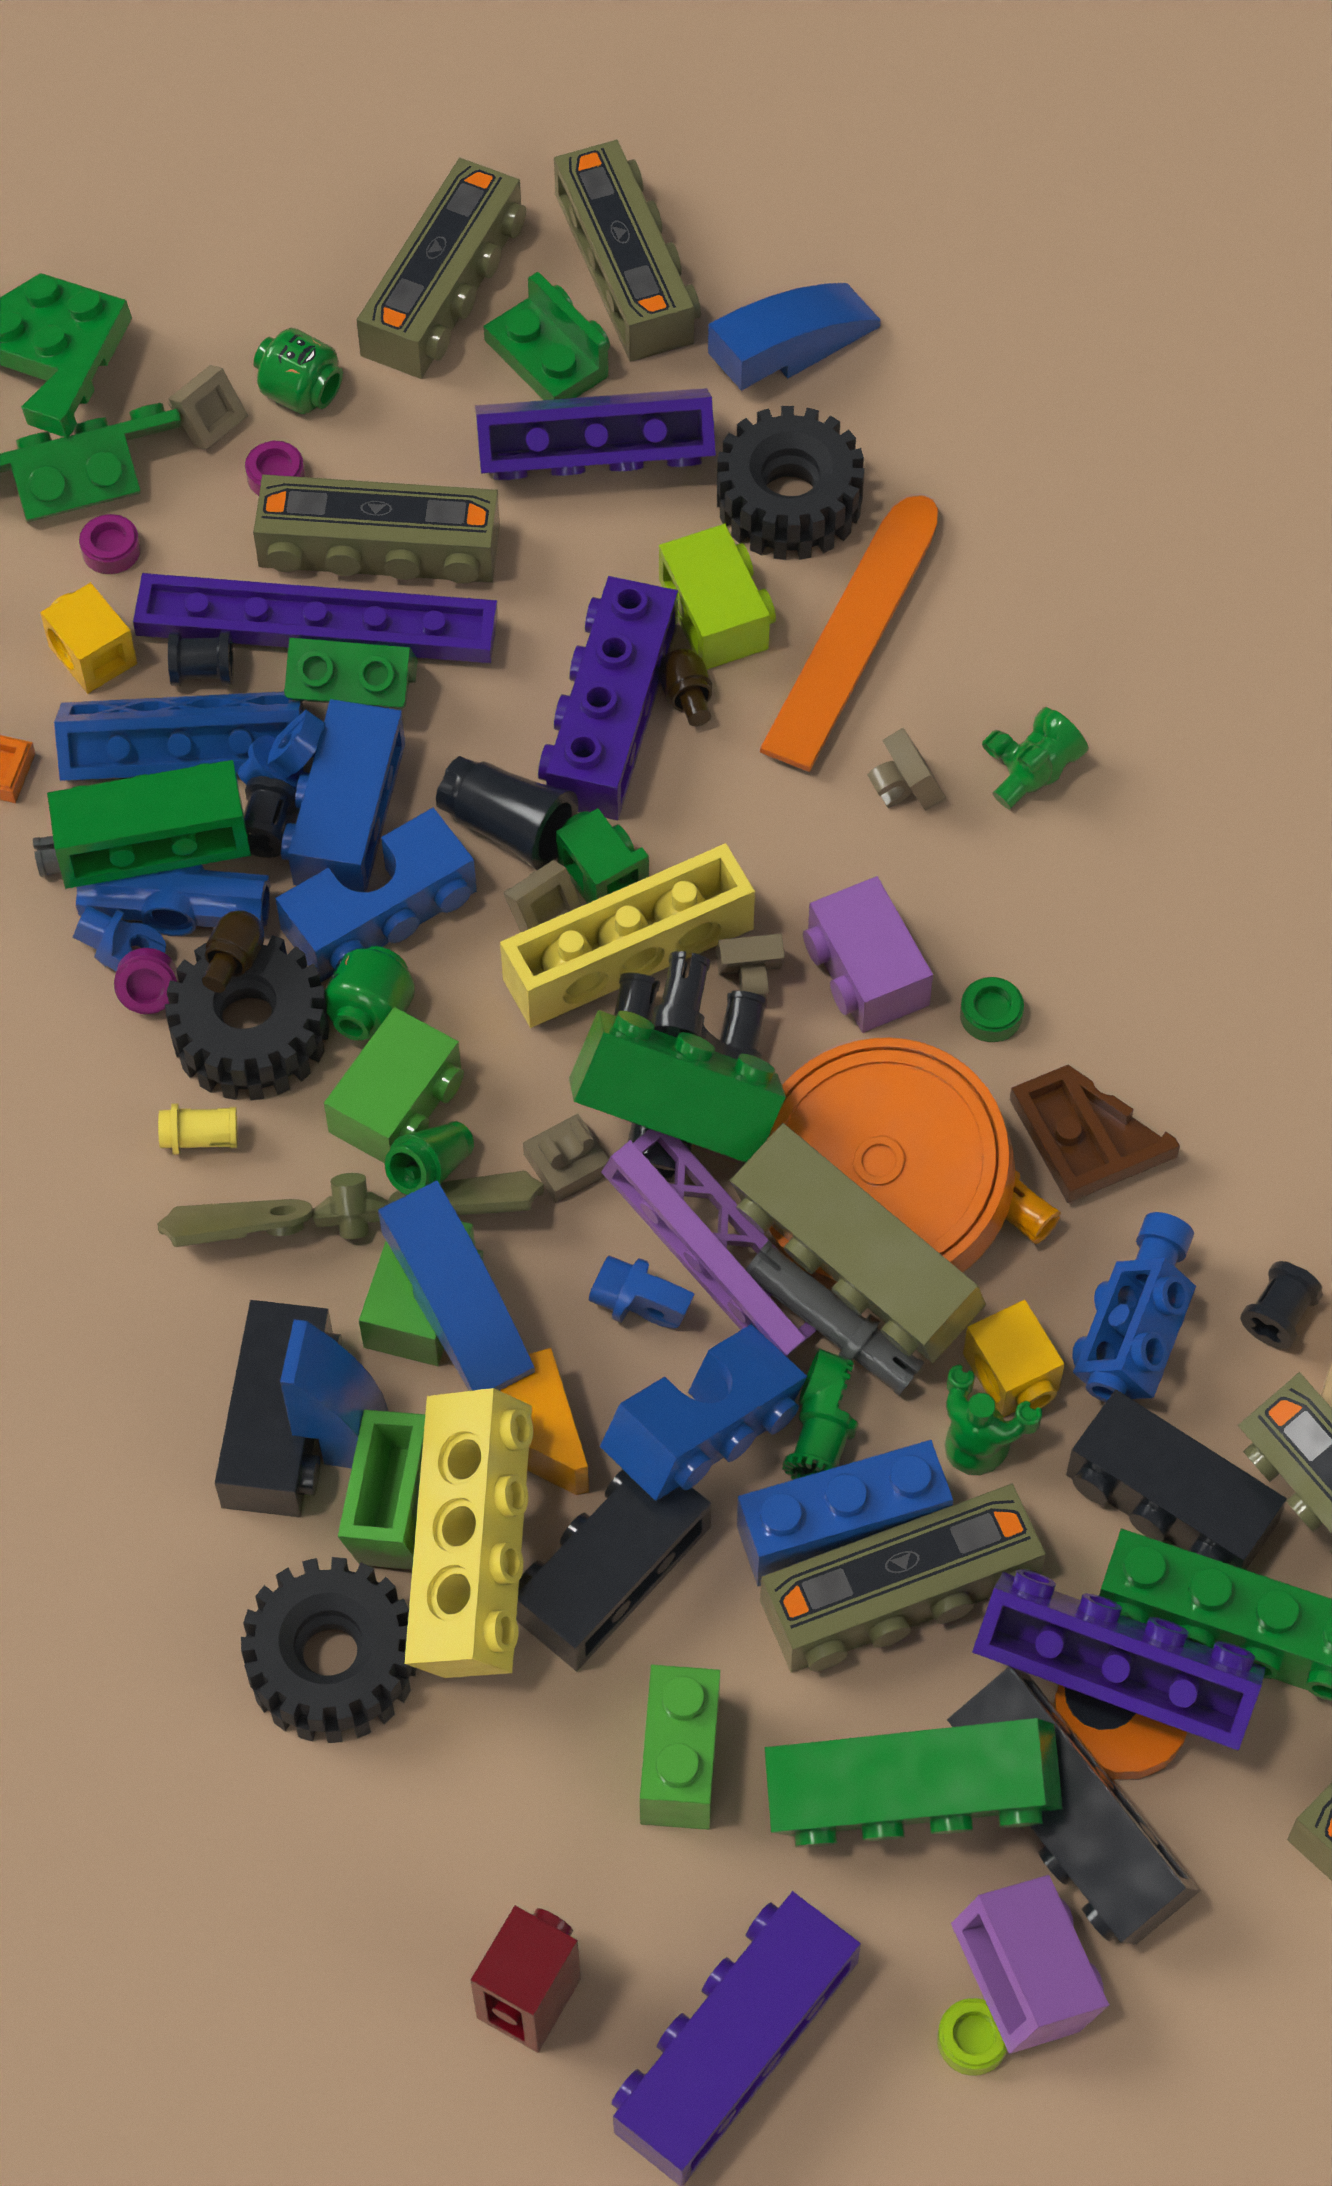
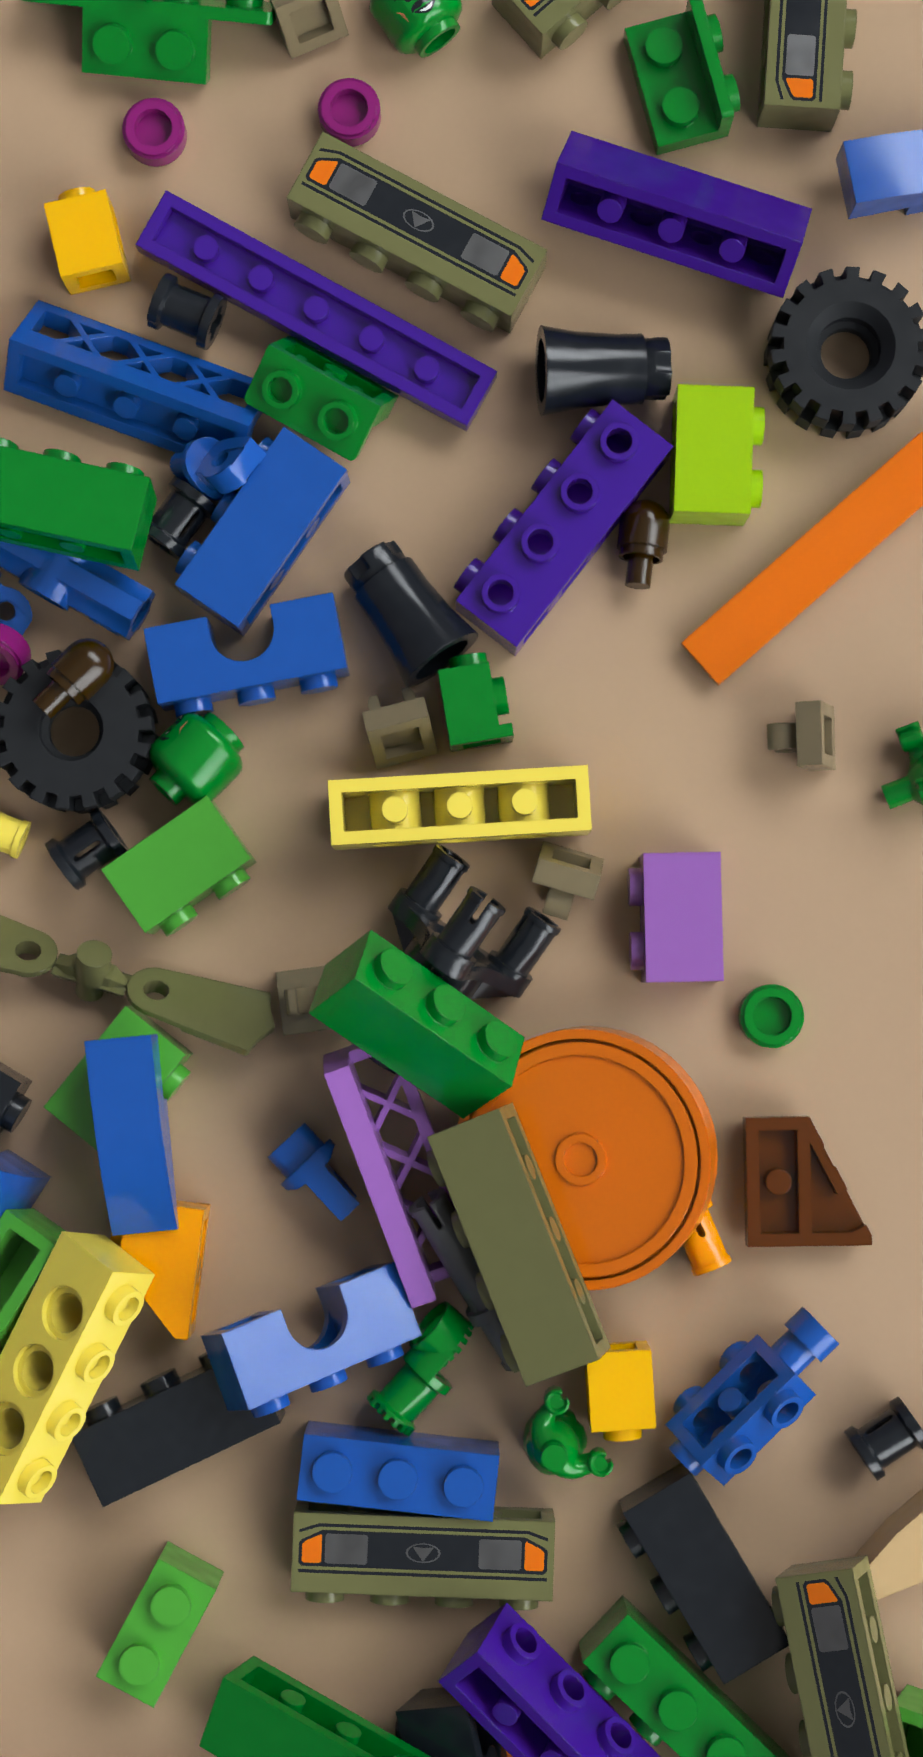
camera: 25 degrees right, 25 degrees up
(298, 1108) = (78, 868): none -> black bush
(427, 1156) = (179, 957): green cone -> none
(575, 568) = (594, 368): none -> black plant

